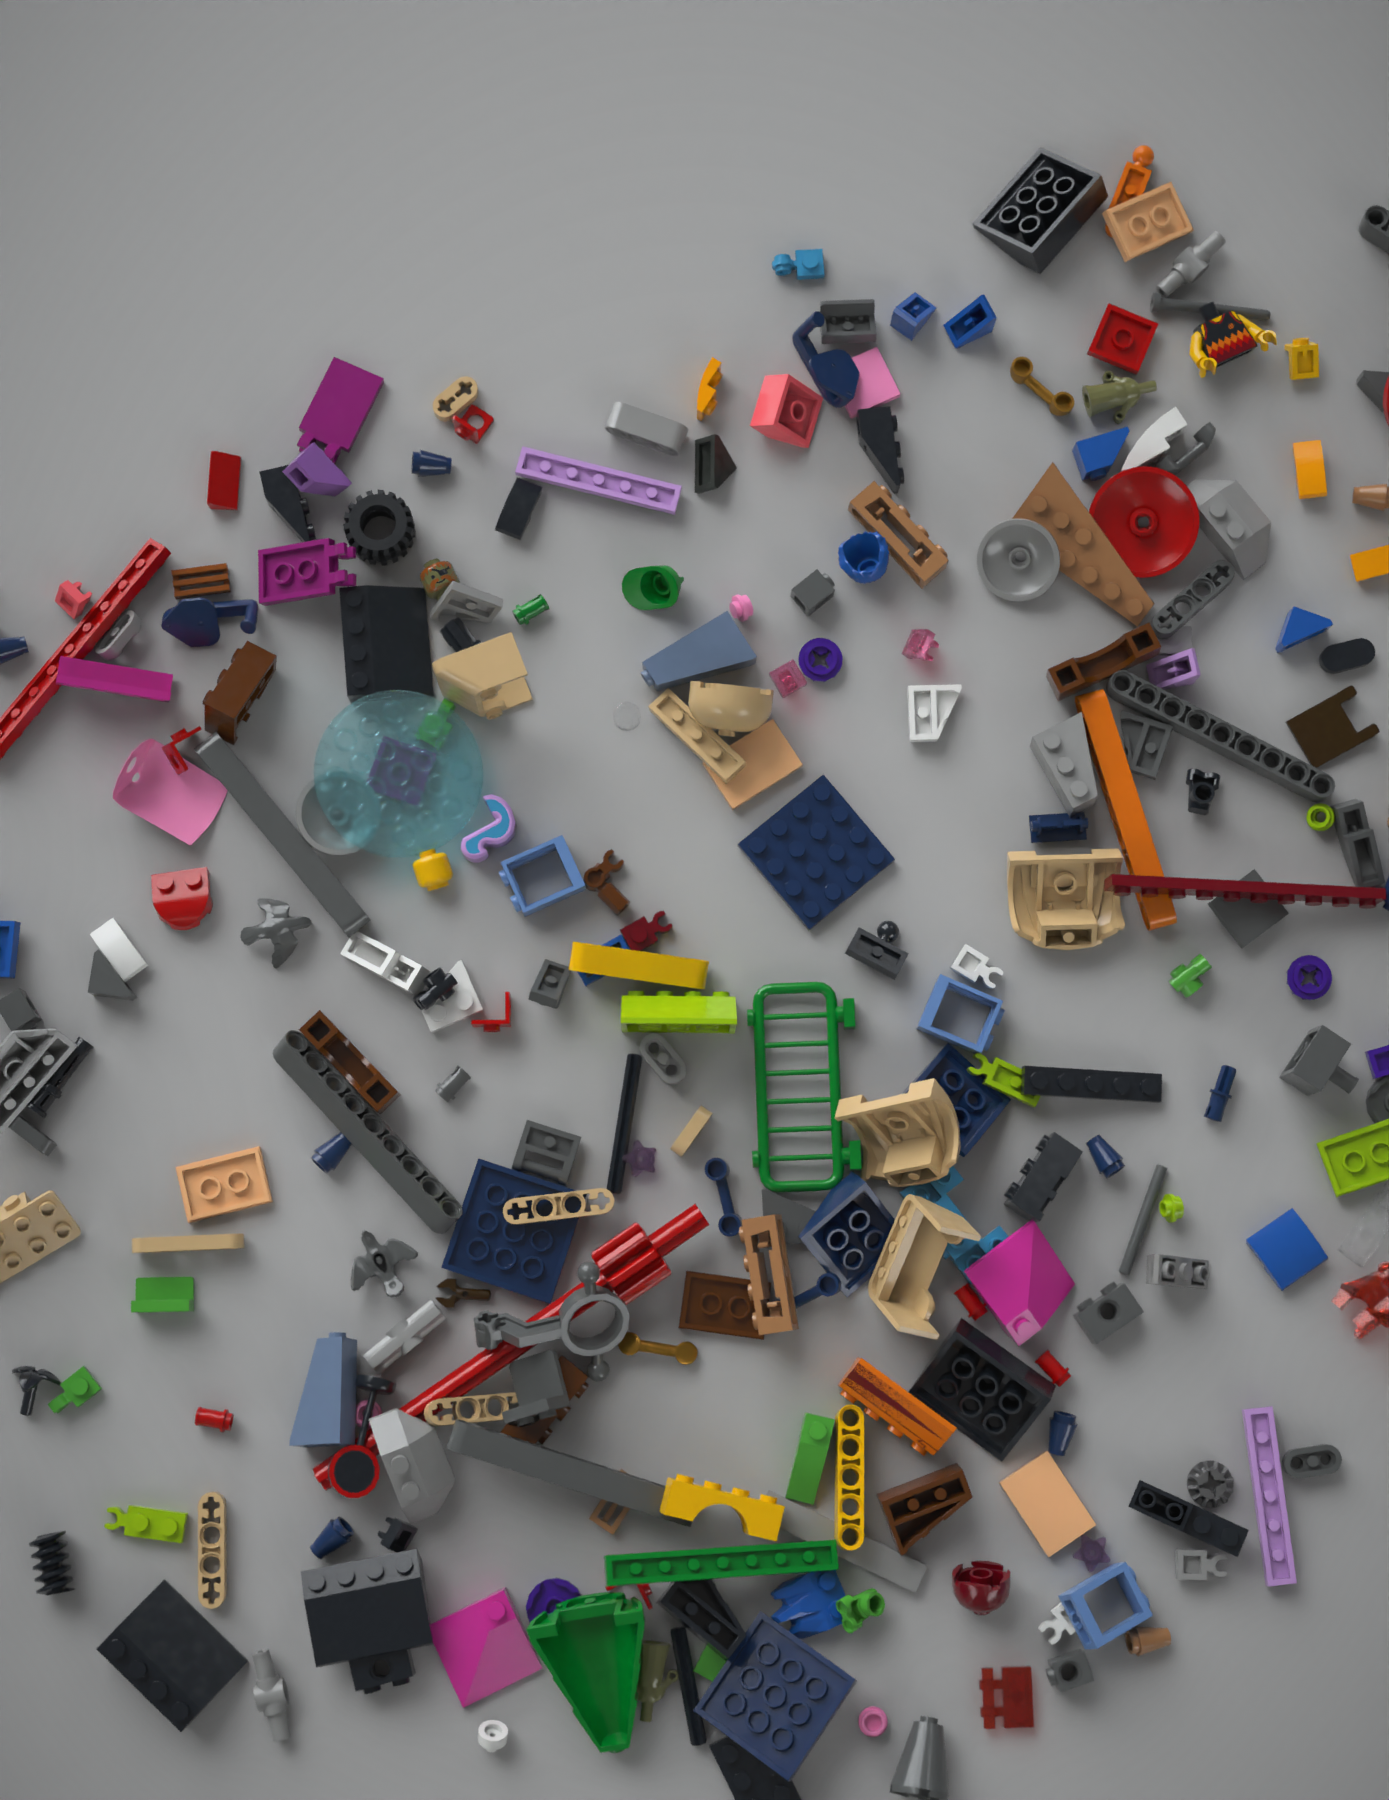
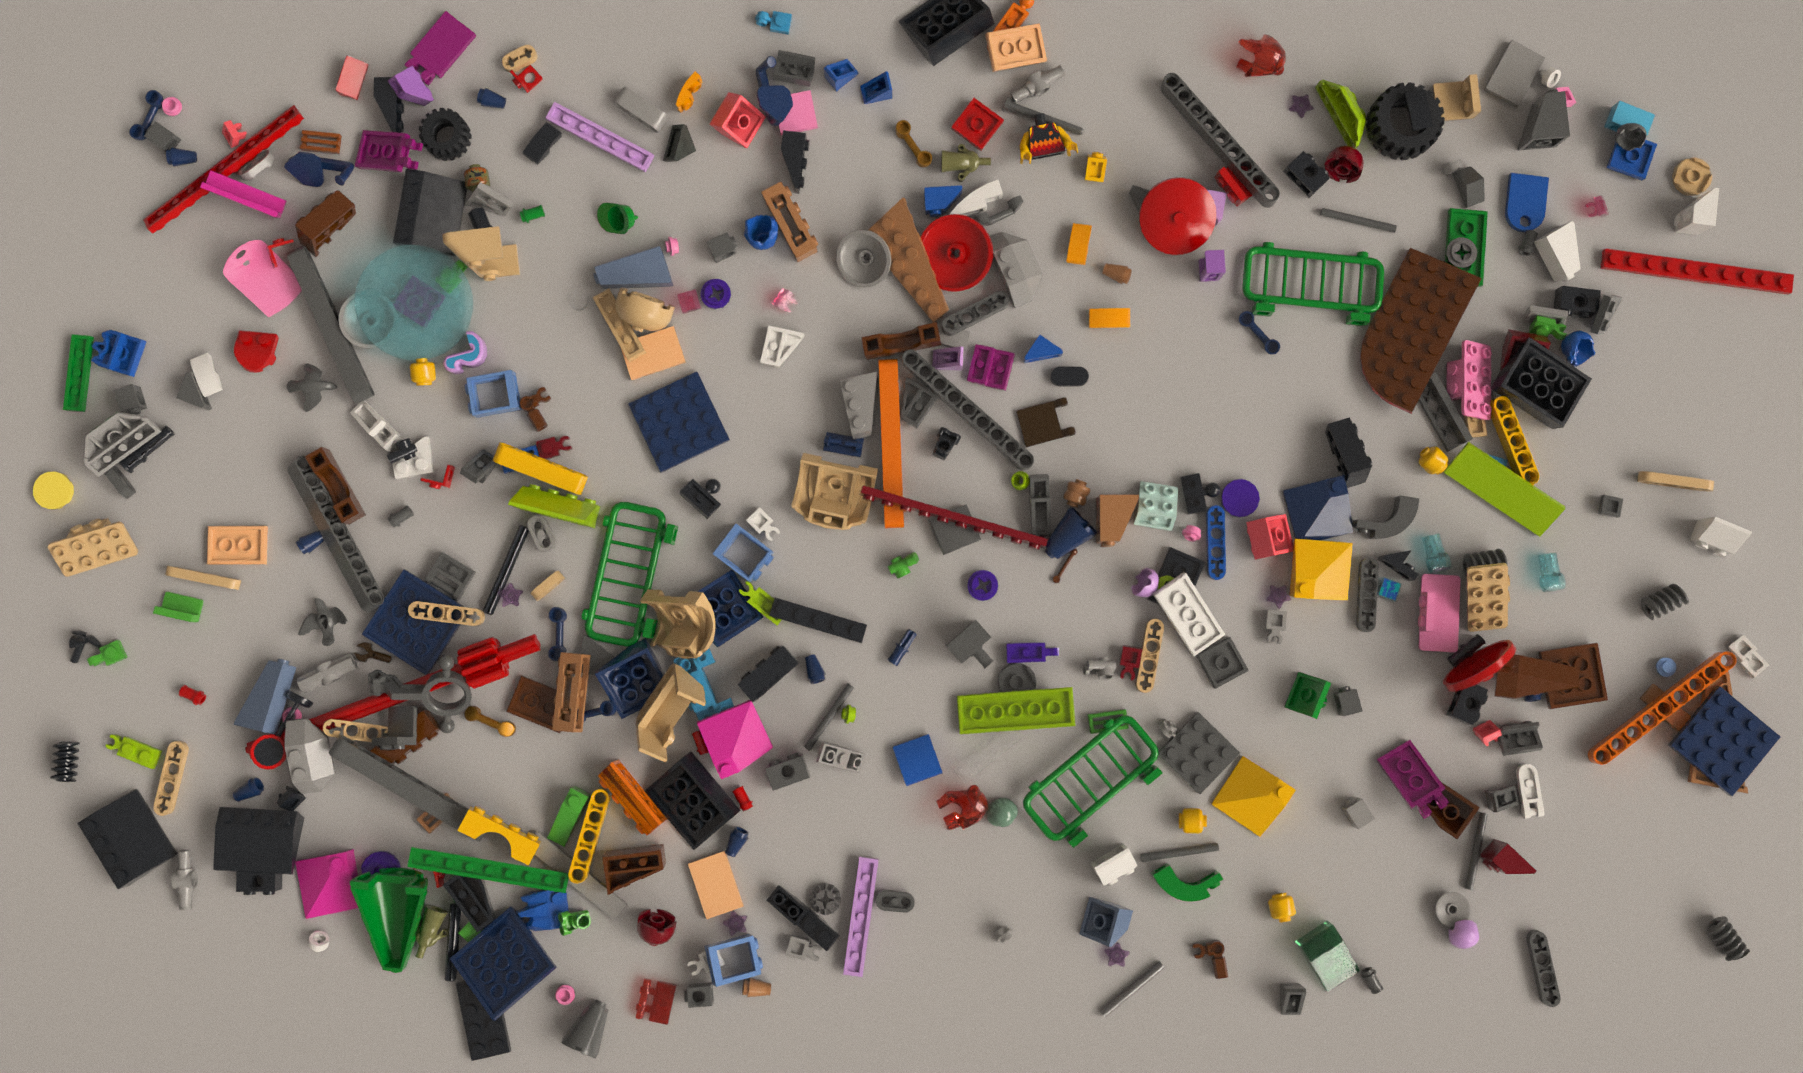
camera: 20 degrees right, 5 degrees up
(1234, 669) = (990, 367): none -> magenta slope

